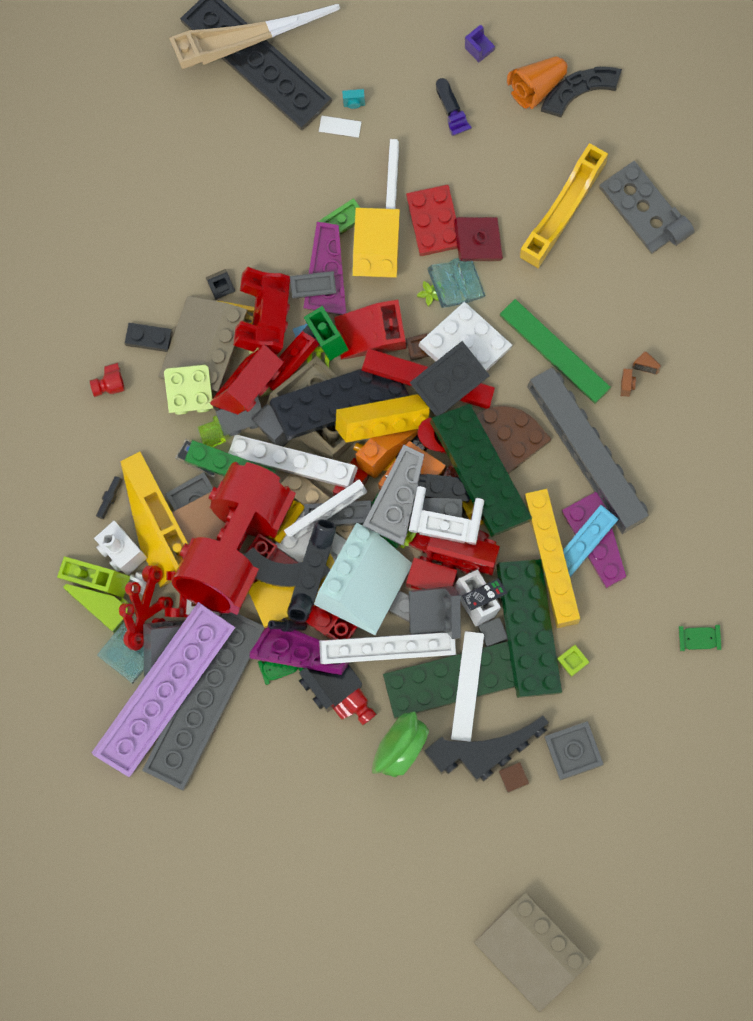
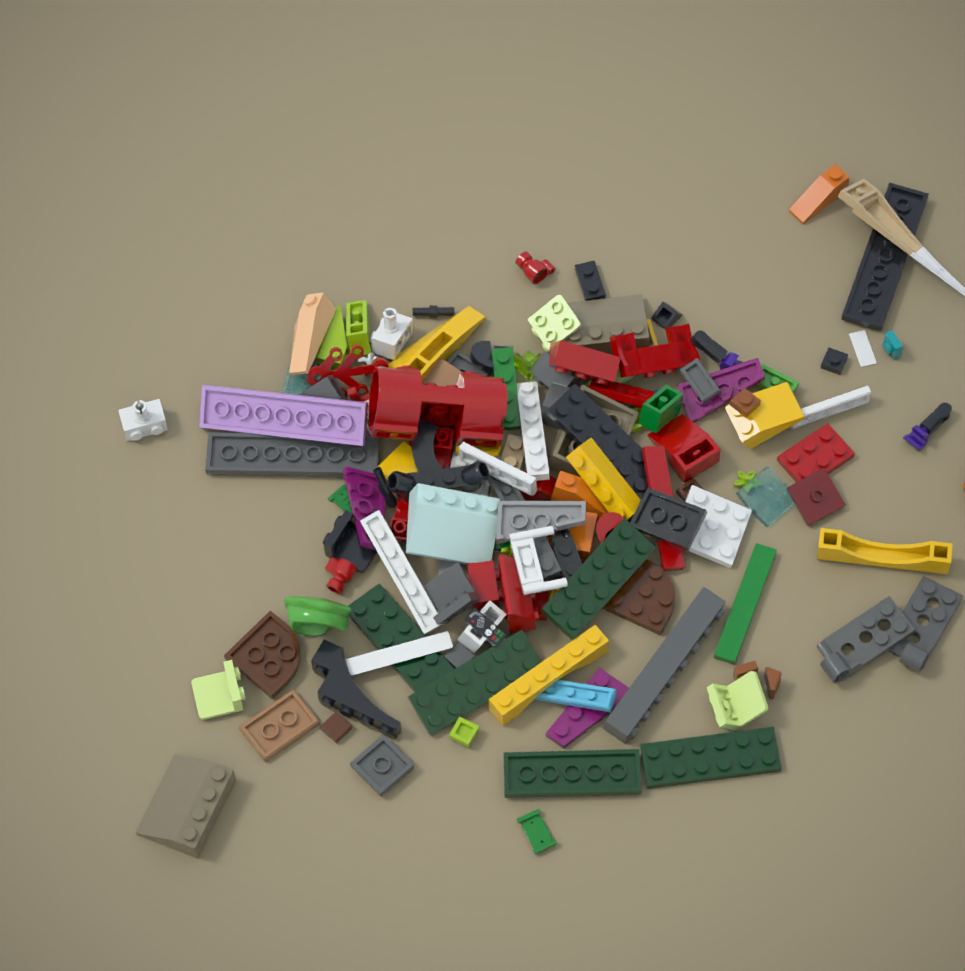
camera: 60 degrees right, 15 degrees down
(80, 626) = (310, 331): none -> light nougat wedge
(96, 829) = (143, 419): none -> white brick
(161, 85) = (820, 194): none -> orange slope
(185, 473) = (482, 355): none -> black tile
(300, 250) = (714, 350): none -> black piece
(342, 157) = (834, 361): none -> black plate
(363, 254) = (745, 402): none -> dark orange plate
(410, 811) = (267, 654): none -> reddish brown plate
(430, 874) = (218, 693): none -> yellowish green bracket
(487, 830) = (279, 725): none -> medium nougat tile
(655, 401) = (738, 702): none -> yellowish green bracket
(657, 296) = (842, 666): none -> dark grey hinge
(657, 581) = (572, 773): none -> dark green plate
(693, 452) = (710, 757): none -> dark green plate

